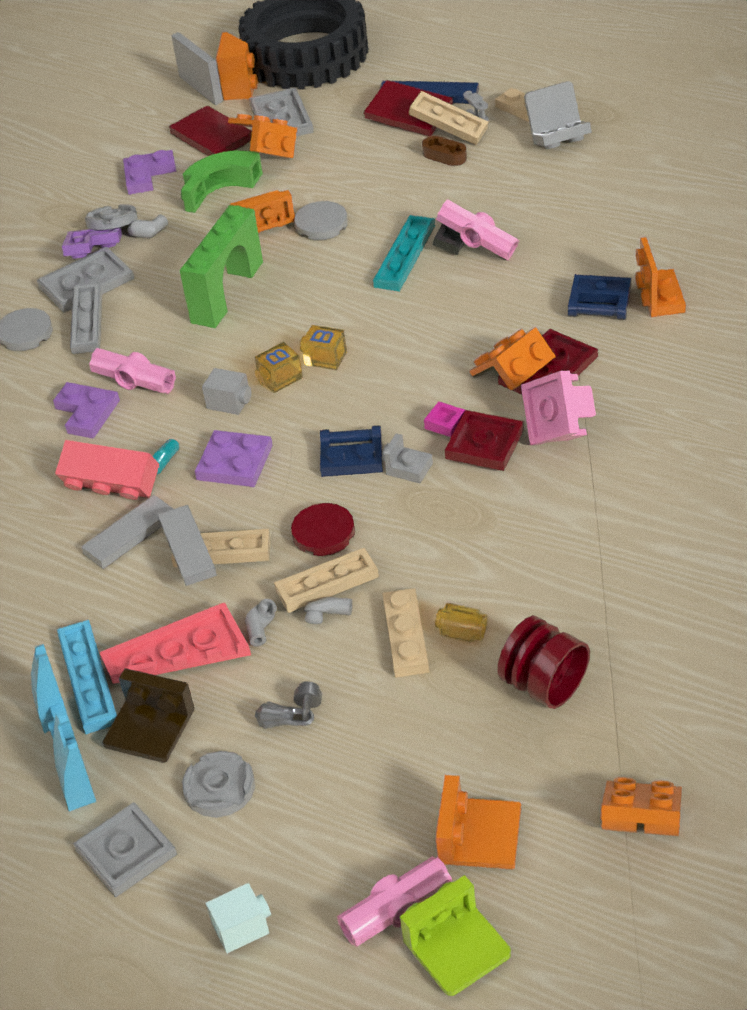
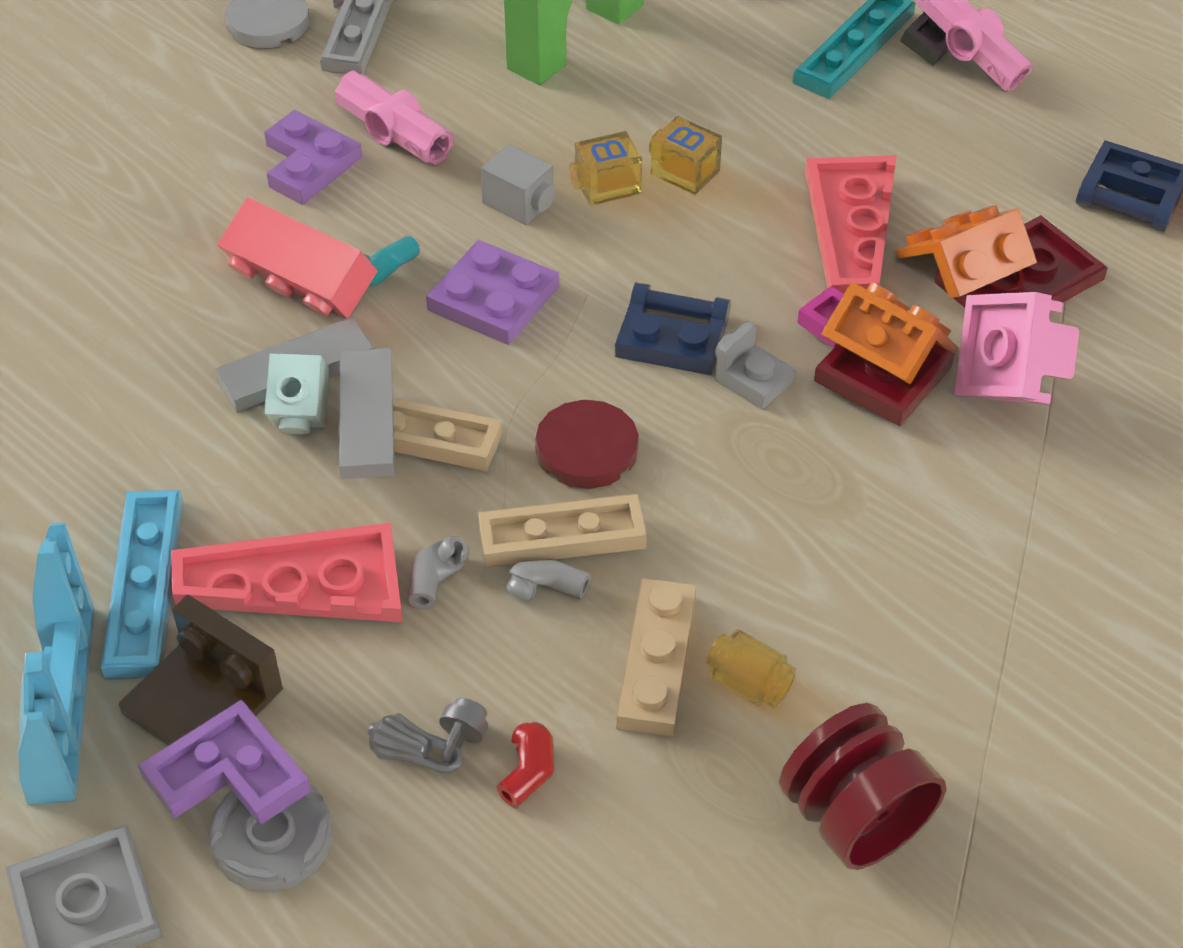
camera: 10 degrees right, 5 degrees up
(139, 545) = (297, 392): none -> light aqua brick
(181, 745) = (231, 752): none -> medium lavender plate
(356, 705) = (535, 763): none -> red arm
(437, 359) = (851, 215): none -> coral wing
(478, 418) = (884, 331): none -> orange bracket

